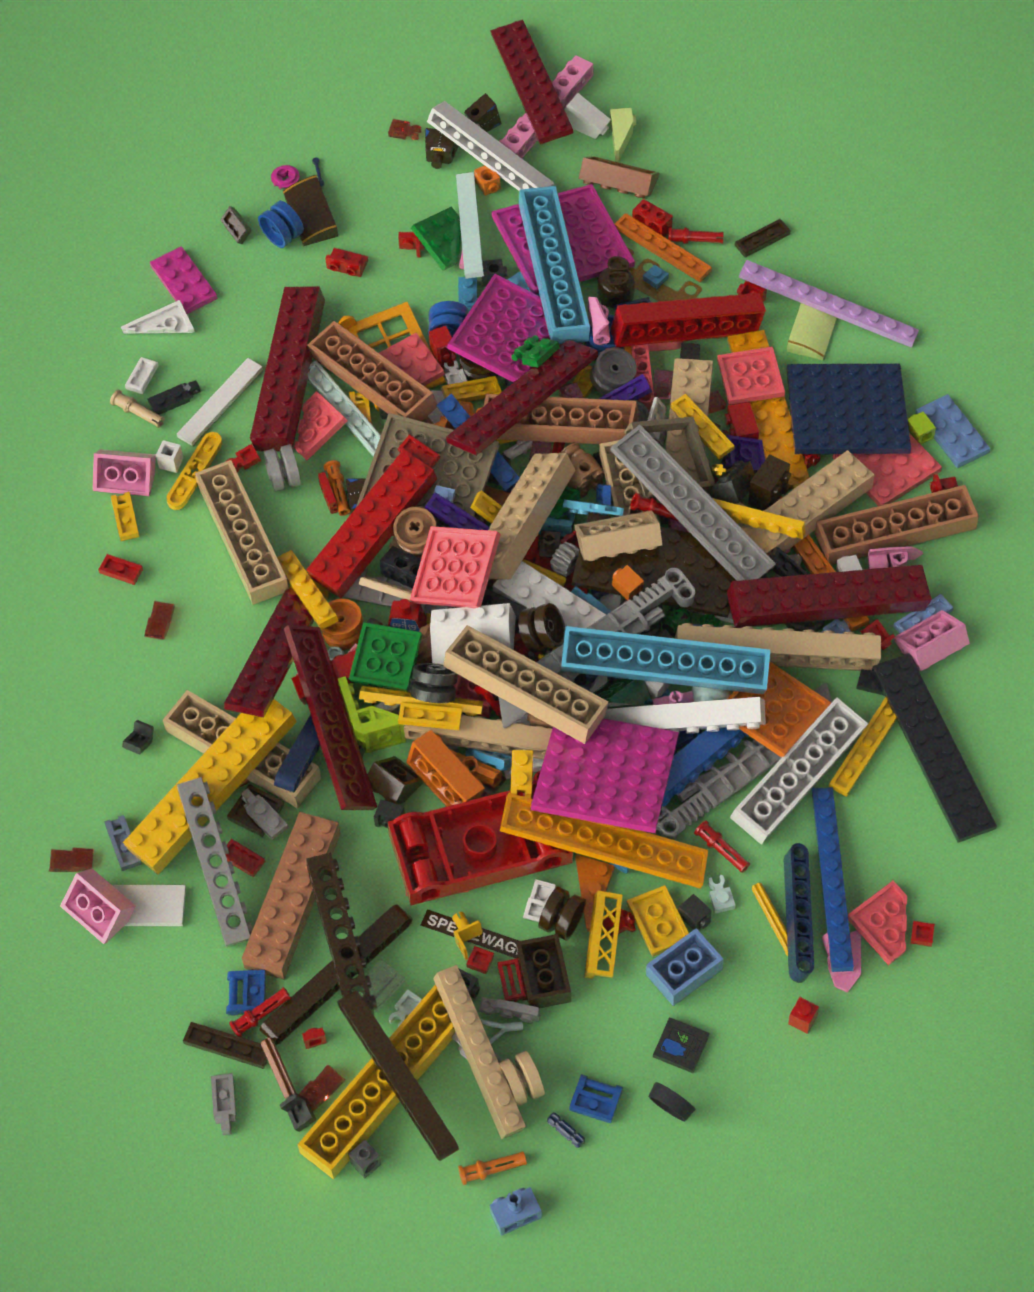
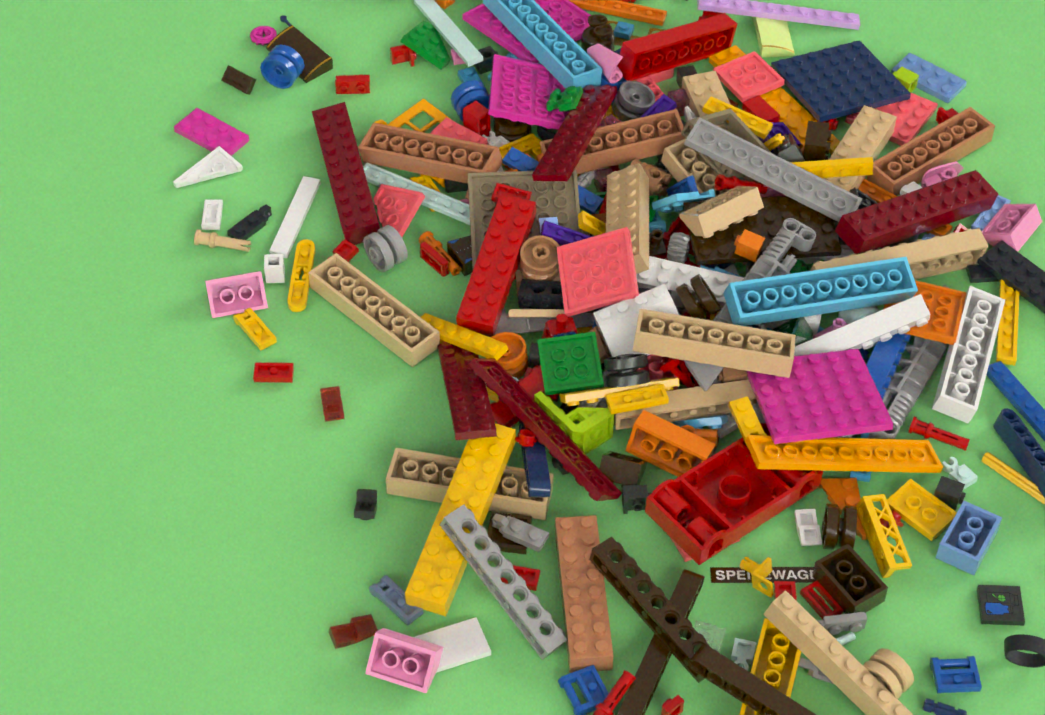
camera: 25 degrees left, 10 degrees down
(304, 723) = (526, 438): none -> red plate

